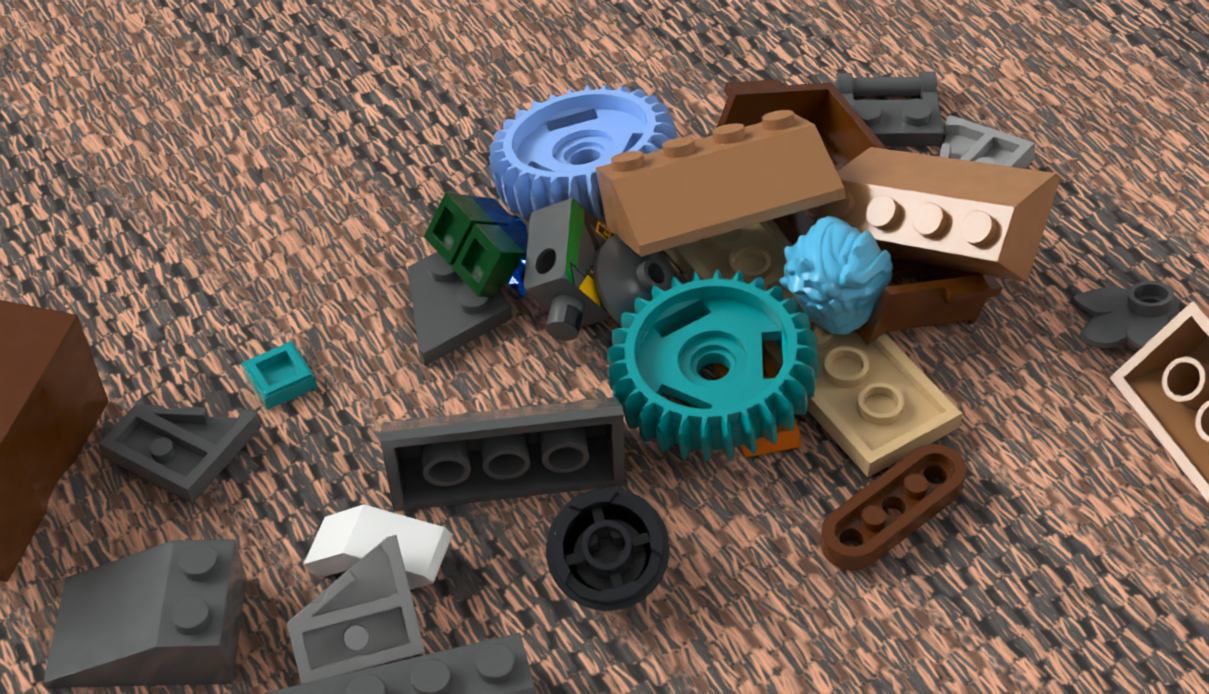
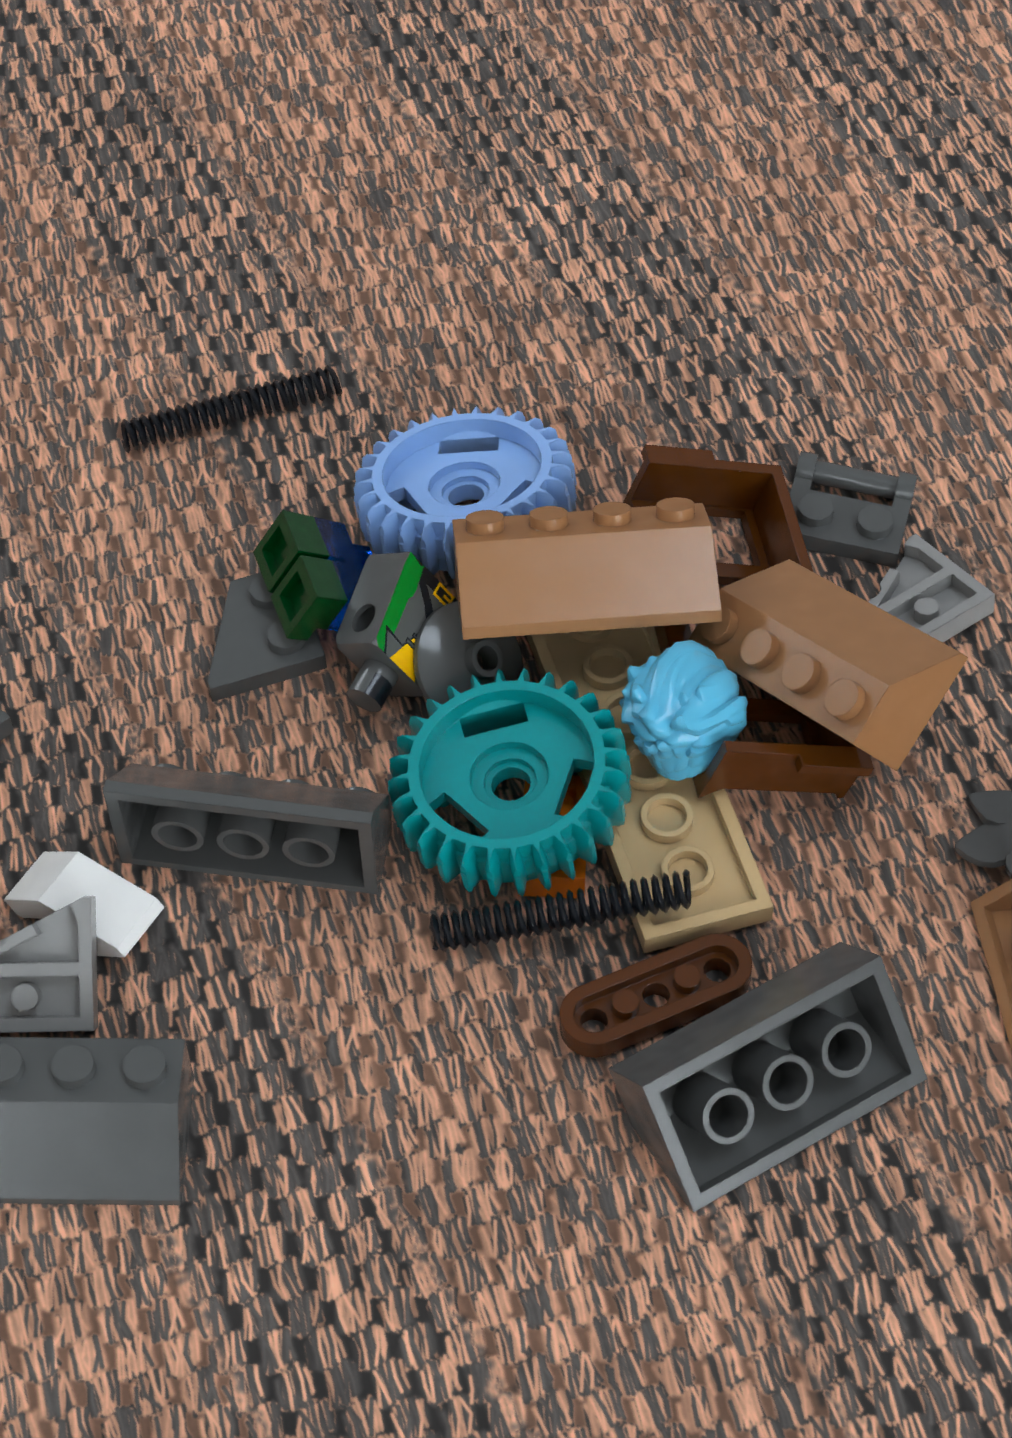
camera: 15 degrees right, 5 degrees up
(279, 375) = (52, 675): teal tile -> none
(364, 136) = (130, 428): none -> black piece
(607, 549) = (314, 968): black cone -> none
(704, 488) = (659, 901): none -> black piece
(1012, 543) = (770, 1073): none -> dark grey slope

